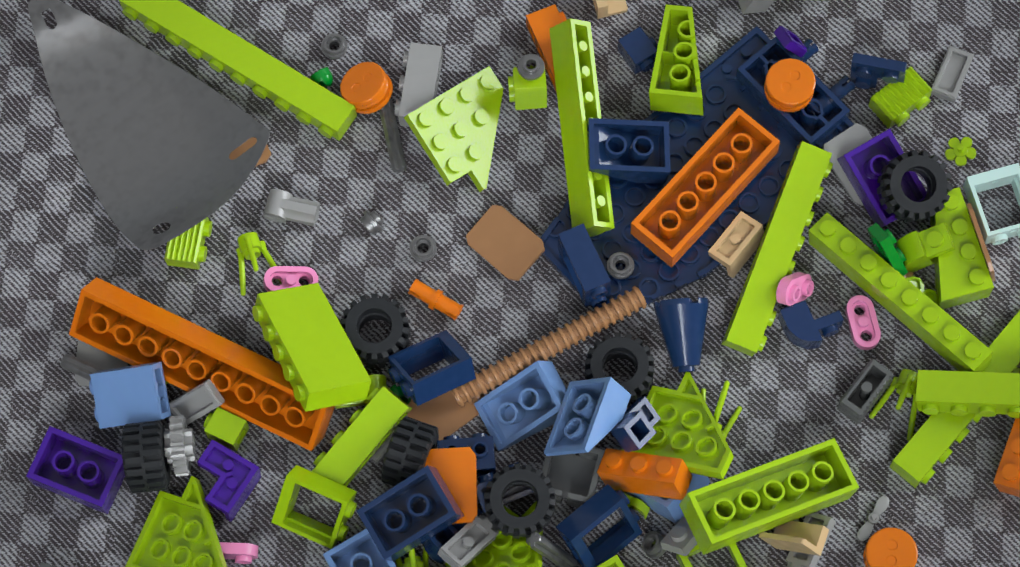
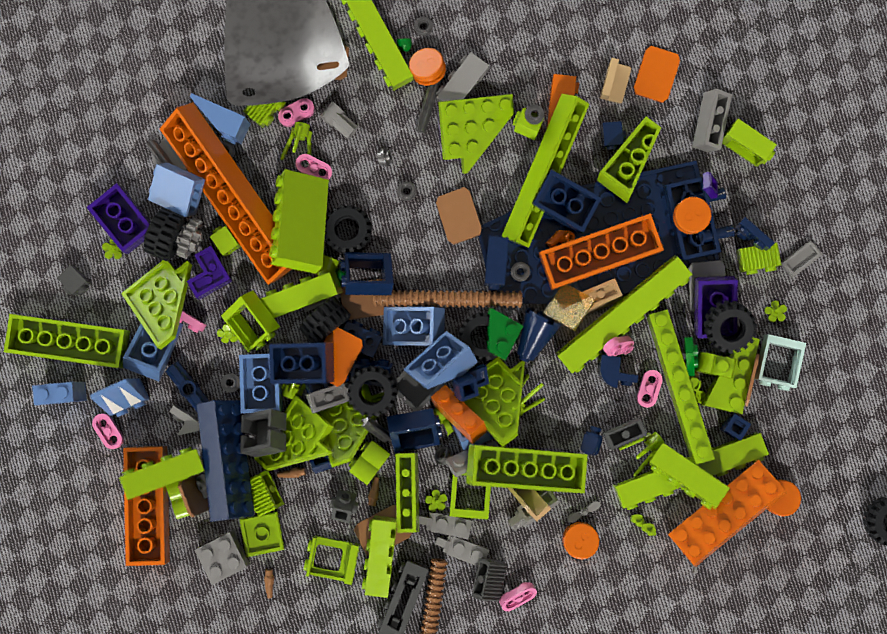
camera: 30 degrees right, 15 degrees up
(84, 518) = (111, 250): none -> lime plant
(150, 279) = (228, 123): none -> medium blue slope
(197, 401) = (214, 215): light grey tile -> none
(231, 227) = (297, 114): none -> bright pink plate
(291, 543) = (226, 334): none -> lime plant
(435, 299) = (396, 228): orange pin -> none
(642, 348) = (501, 333): none -> green wing
(644, 197) = (560, 236): none -> orange arm
(706, 272) = (569, 307): none -> clear yellow piece
(831, 423) = (591, 441): none -> dark blue arm
(963, 495) = (647, 527): none -> lime piece
(995, 308) = (735, 427): none -> dark blue brick

